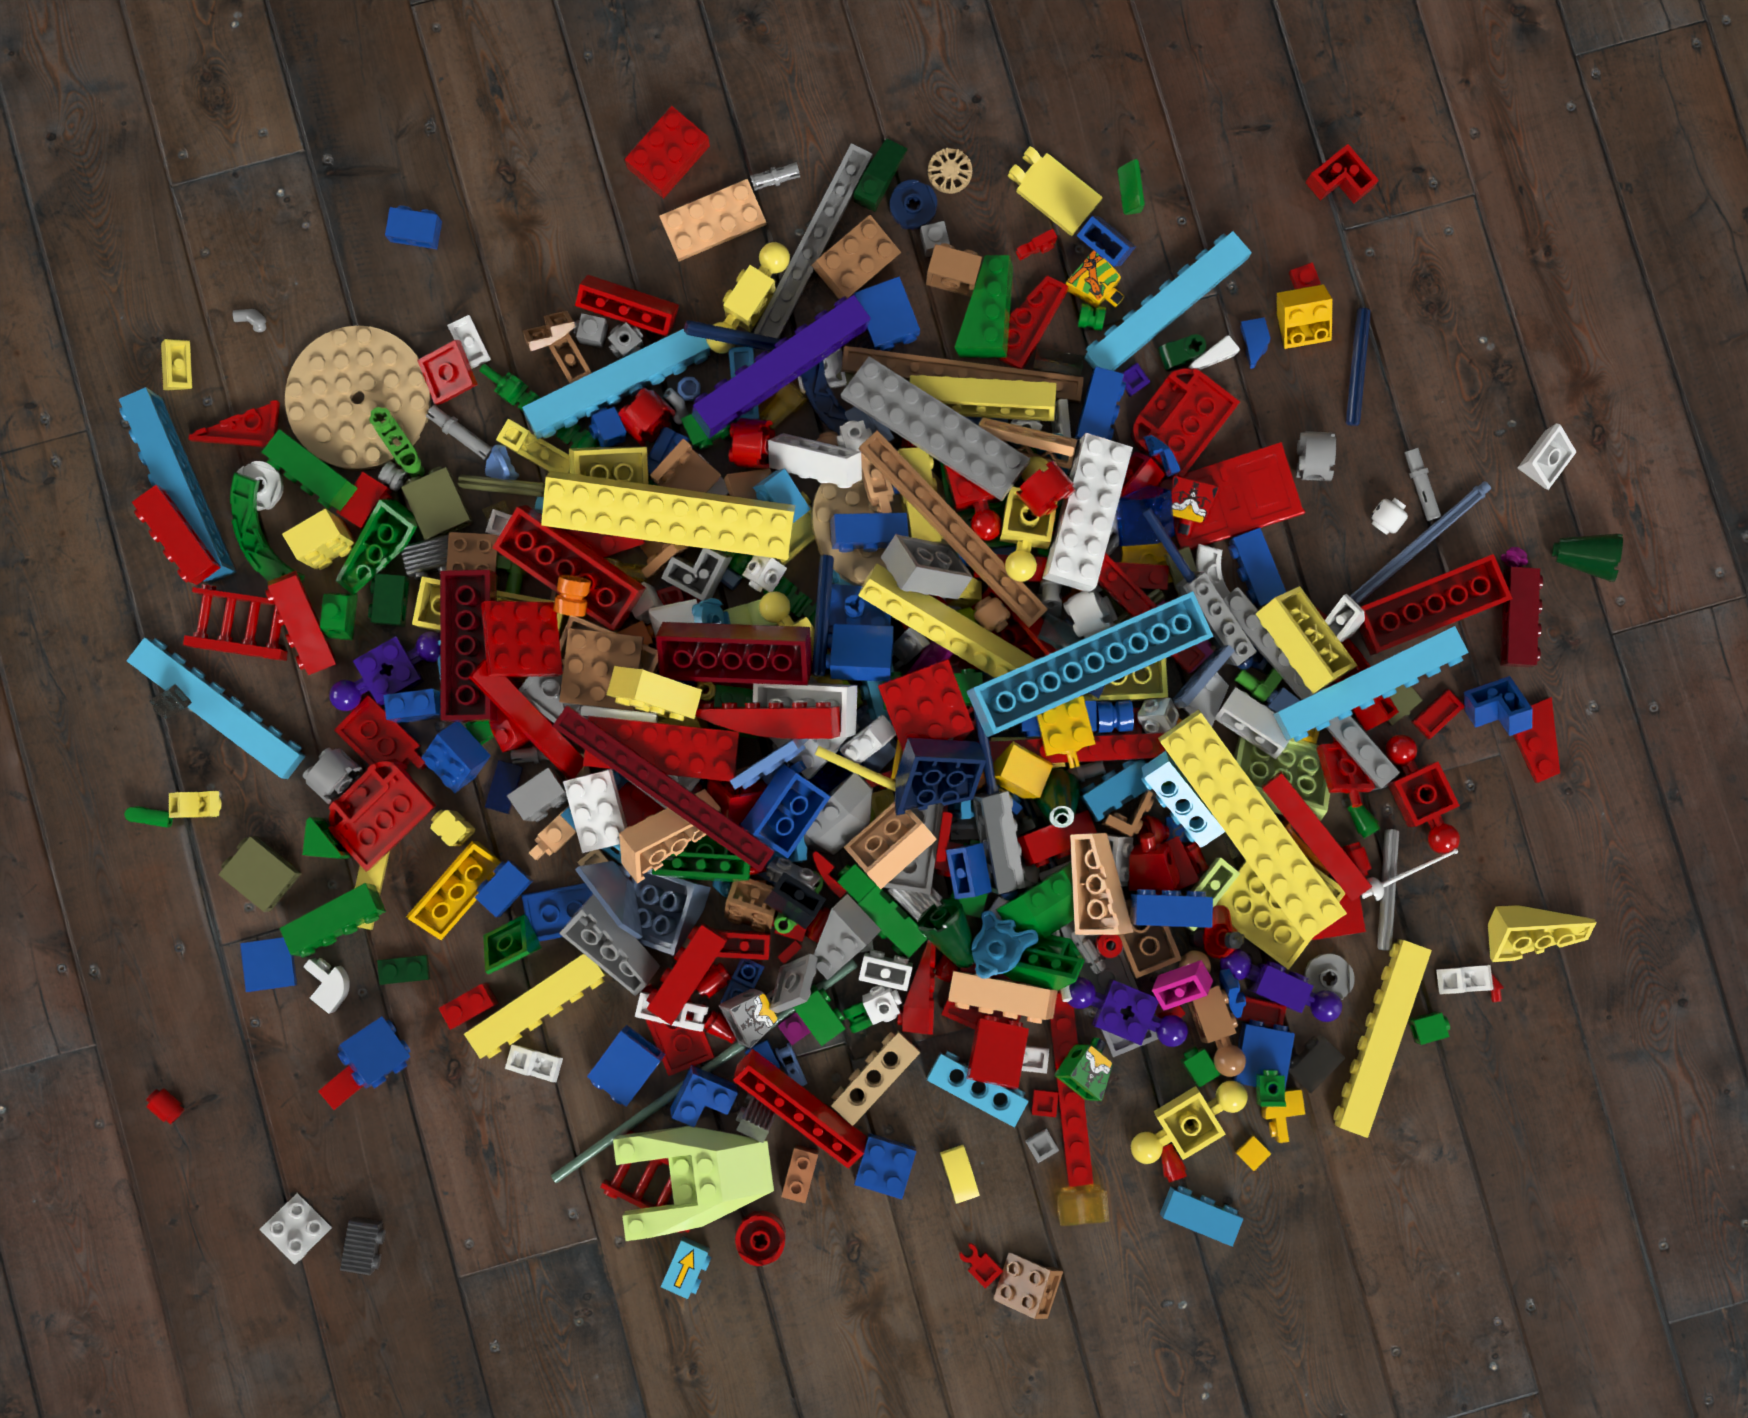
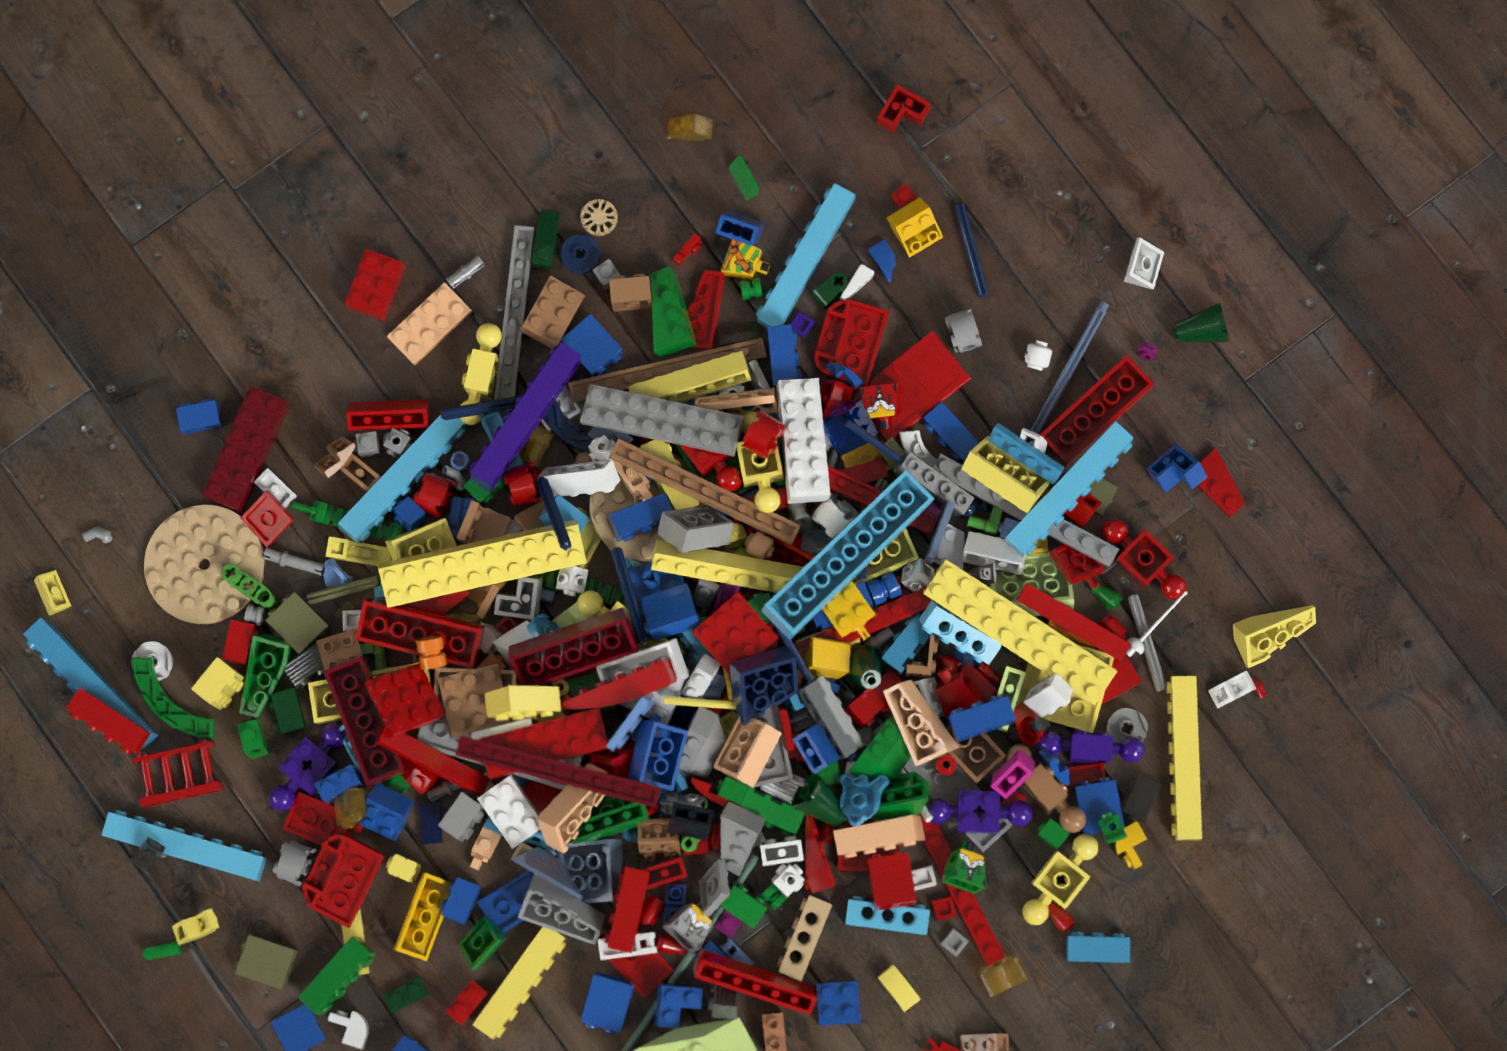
camera: 10 degrees left, 5 degrees down
(252, 428) = (129, 620): red wing -> none
(301, 622) = (227, 753): red brick -> none
(309, 470) = (189, 634): green brick -> none
(321, 842) = (306, 918): green slope -> none
(416, 737) = (350, 808): none -> clear yellow brick
(452, 284) = (246, 449): none -> dark red brick
(534, 1063) = (535, 1029): white slope -> none
(771, 487) = (554, 513): none -> dark blue axle
(790, 951) = (702, 865): red tile -> none
(1055, 191) = (686, 202): light yellow tile -> none
(1088, 952) = (933, 777): light grey axle -> none
(1092, 106) = (690, 127): none -> clear yellow slope
(1236, 743) = (985, 574): none -> light grey hinge
(1253, 1153) = (1120, 885): yellow tile -> none
(1257, 911) = (1049, 696): none -> white brick
(1337, 624) = (1026, 454): none -> dark azure plate
(1422, 484) = (1055, 322): light grey pin -> none
(1429, 1027) = (1218, 736): green brick -> none
(1438, 714) = (1134, 493): red tile -> none
(1521, 618) = (1168, 395): dark red brick -> none

